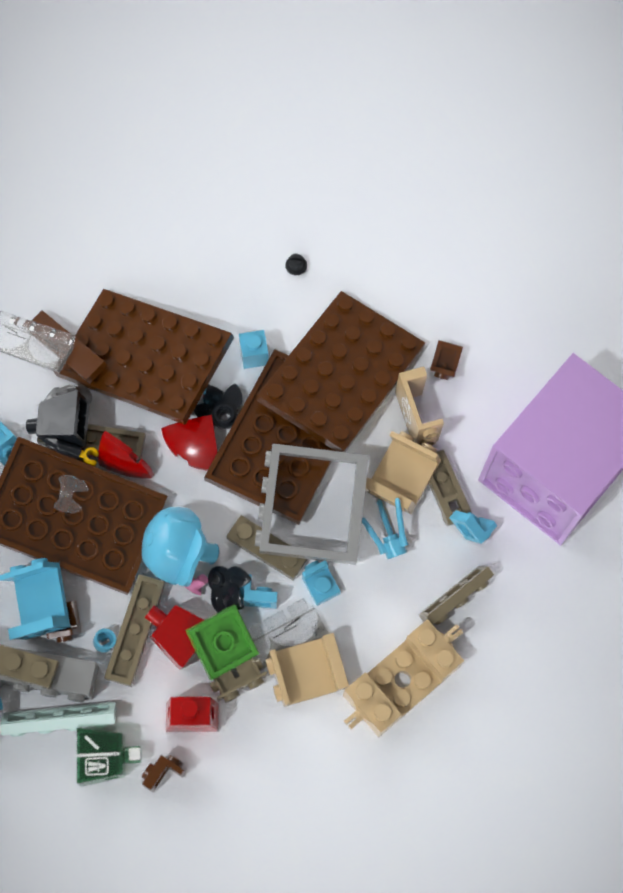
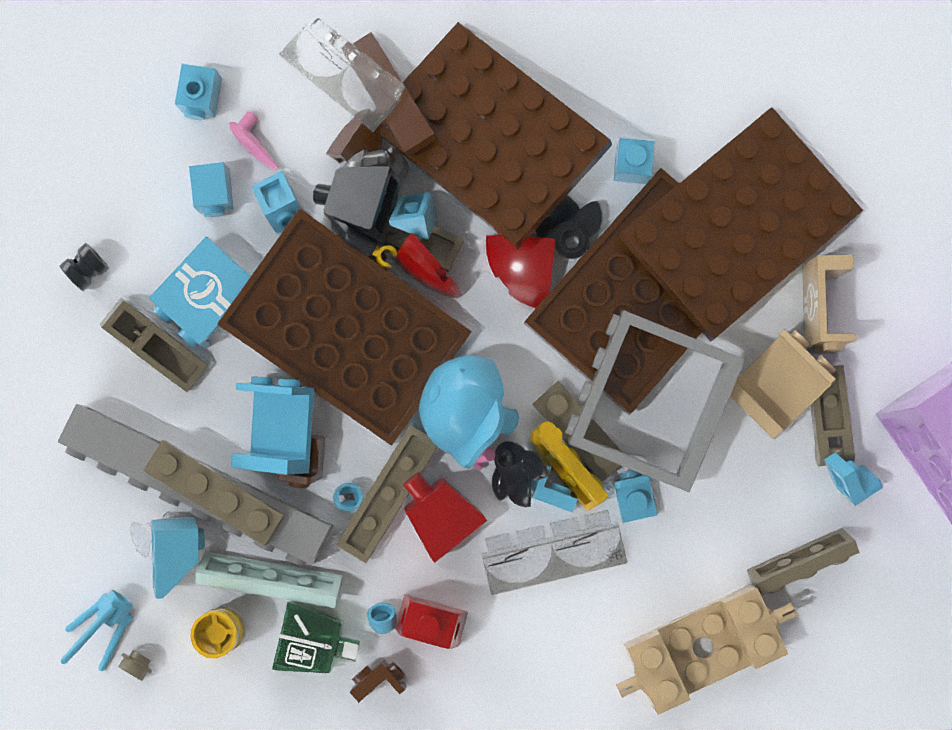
camera: 25 degrees right, 15 degrees up
(27, 768) = (217, 632): none -> yellow wheel
(46, 382) = (353, 139): none -> reddish brown brick
(69, 485) = (348, 292): clear piece -> none
(105, 421) = (415, 214): none -> medium azure slope
(153, 724) = (382, 618): none -> medium azure hinge
(222, 642) = (492, 543): bright green tile -> none
(249, 676) = (487, 598): dark tan hinge -> none
(265, 573) = (567, 466): none -> yellow hinge
(296, 264) = (721, 53): black piece -> none
(307, 670) = (588, 604): tan panel -> none
(393, 545) = (741, 475): medium azure plant -> none
(446, 359) = (883, 242): reddish brown bracket -> none

